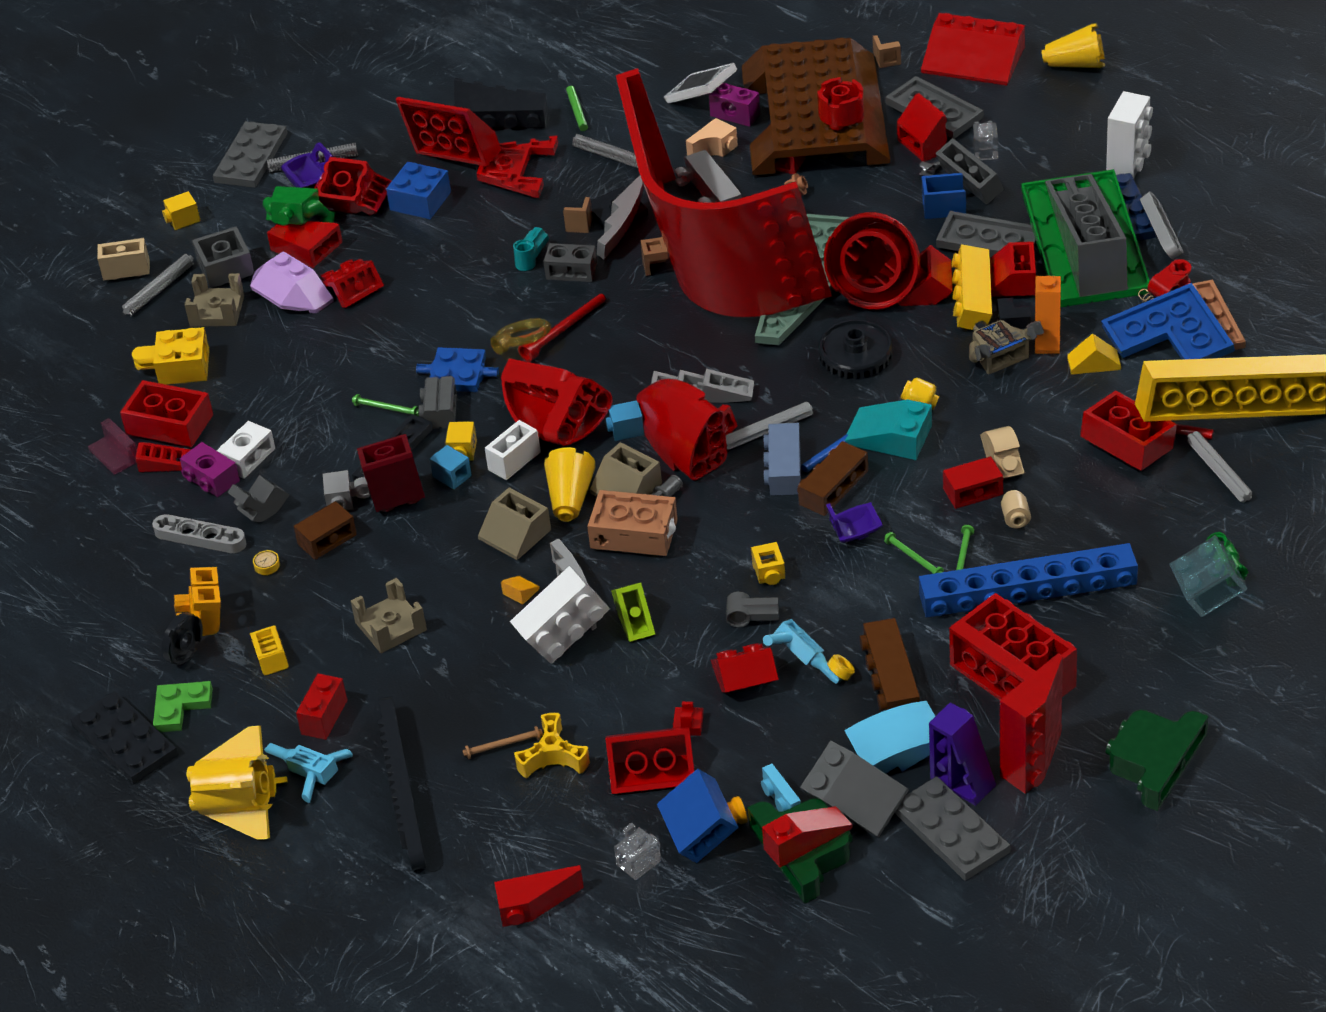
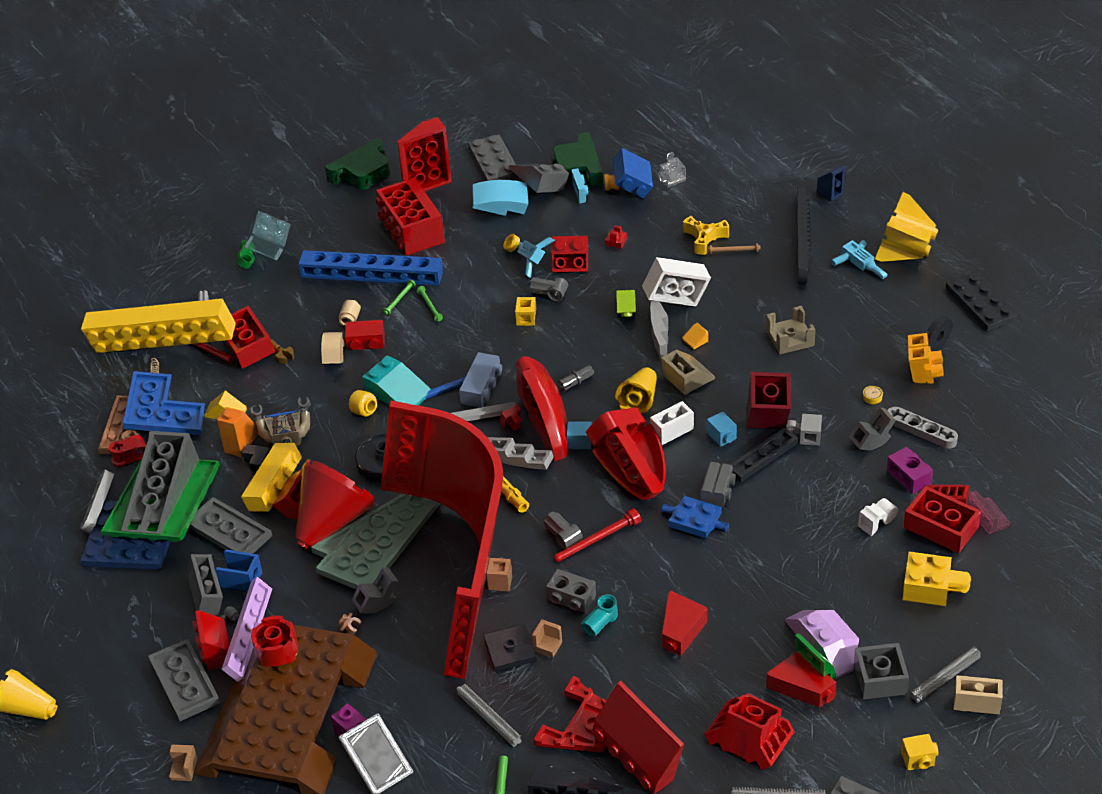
camera: 165 degrees left, 0 degrees up
(175, 698) = (949, 309): bright green plate -> none
(215, 305) = (892, 630): dark tan panel -> none
(242, 408) = (870, 515): none -> white leg
(248, 447) = (878, 480): white brick -> none
(269, 652) = (877, 322): yellow slope -> none
(291, 239) = (815, 658): none -> green slope
(295, 206) = (809, 695): green torso -> none
(306, 169) = (788, 765): dark purple piece -> none
(321, 706) = (845, 282): red brick -> none
(325, 530) = (826, 400): reddish brown brick -> none
(353, 281) = (770, 627): red bracket -> none
(358, 400) = (782, 510): bright green axle -> none
(369, 875) = (832, 183): none -> dark blue slope
(418, 190) = (683, 707): blue brick -> none
(440, 261) = (682, 622): none -> red slope
(462, 438) = (708, 447): yellow brick -> none
(503, 340) = (651, 517): clear yellow piece -> none
(532, 895) = (736, 164): red slope -> none
(599, 314) = (564, 532): none -> dark grey piece
(621, 217) = (510, 616): light grey slope -> none
(627, 471) = (593, 386): dark tan slope -> none
(632, 522) = (604, 350): nougat piece -> none
(649, 759) = (646, 217): red slope -> none
(679, 341) = (514, 496): none -> yellow pin
(707, 178) = (417, 644): light grey brick -> none
(715, 138) = (393, 694): light nougat arch -> none
(802, 832) = (580, 143): red slope -> none
(833, 478) = (453, 358): reddish brown brick -> none
(855, 522) = (456, 323): dark purple piece -> none
(889, 664) = (482, 236): reddish brown brick -> none
(894, 146) = (250, 616): none -> lavender plate
(959, 755) = (473, 164): dark purple wedge -> none
(974, 48) = (105, 739): red slope -> none
(985, 140) = (168, 622): clear brick -> none
(1013, 270) = (230, 482): red slope -> none
(1070, 442) = (281, 353): none -> pearl gold bar
(1129, 134) = (64, 563): white brick -> none

